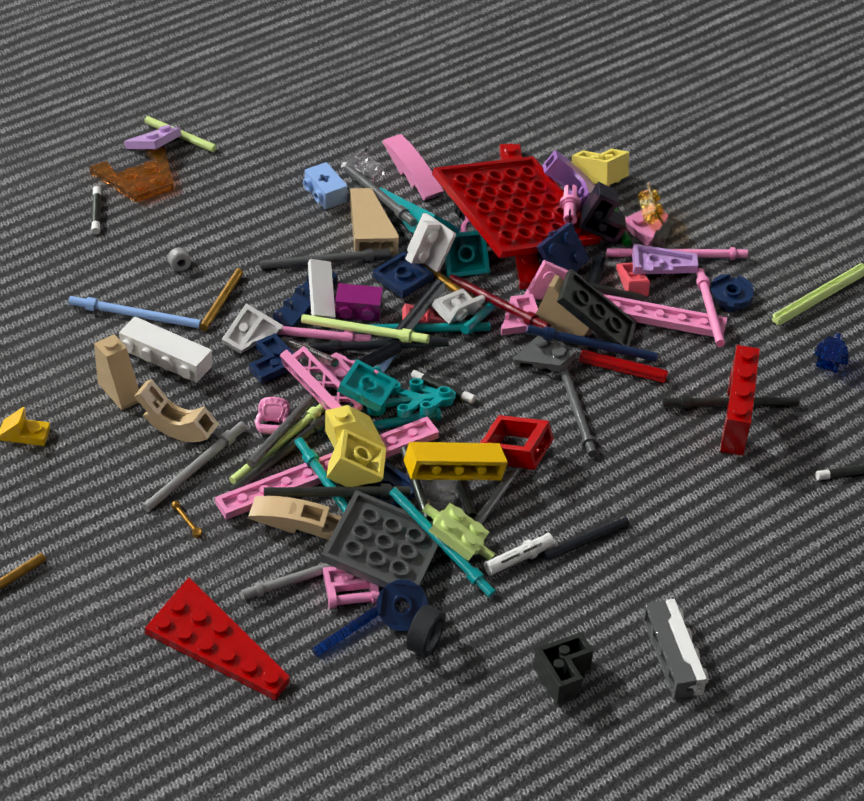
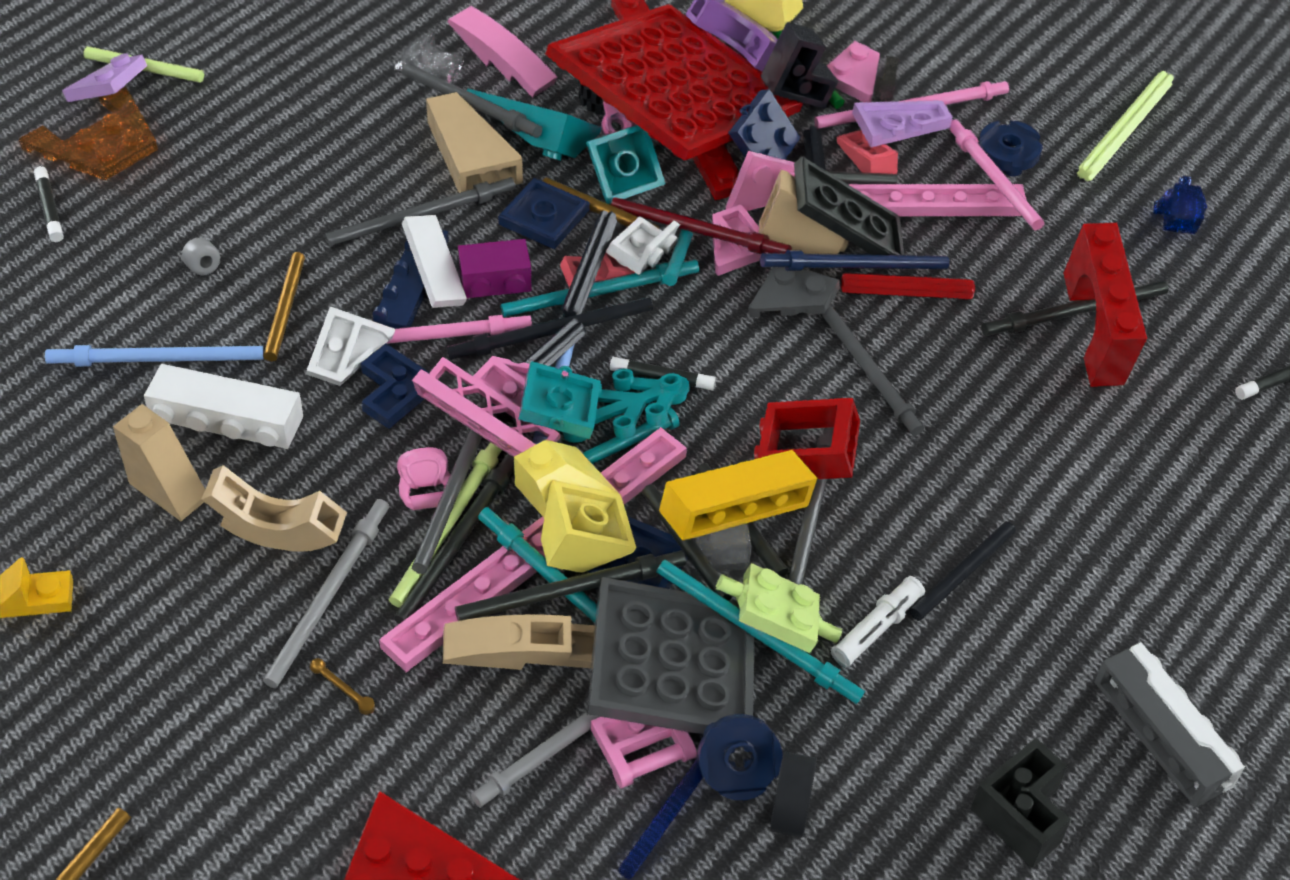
camera: 15 degrees left, 5 degrees up
(320, 356) = (472, 367): clear smoke bar -> none
(325, 185) = (386, 101): light blue brick -> none
(404, 335) = (587, 307): yellowish green bar -> none
(430, 243) = (573, 157): white bracket -> none
(570, 204) = (749, 62): bright pink arm -> none
(651, 208) = (861, 51): clear yellow hinge -> none

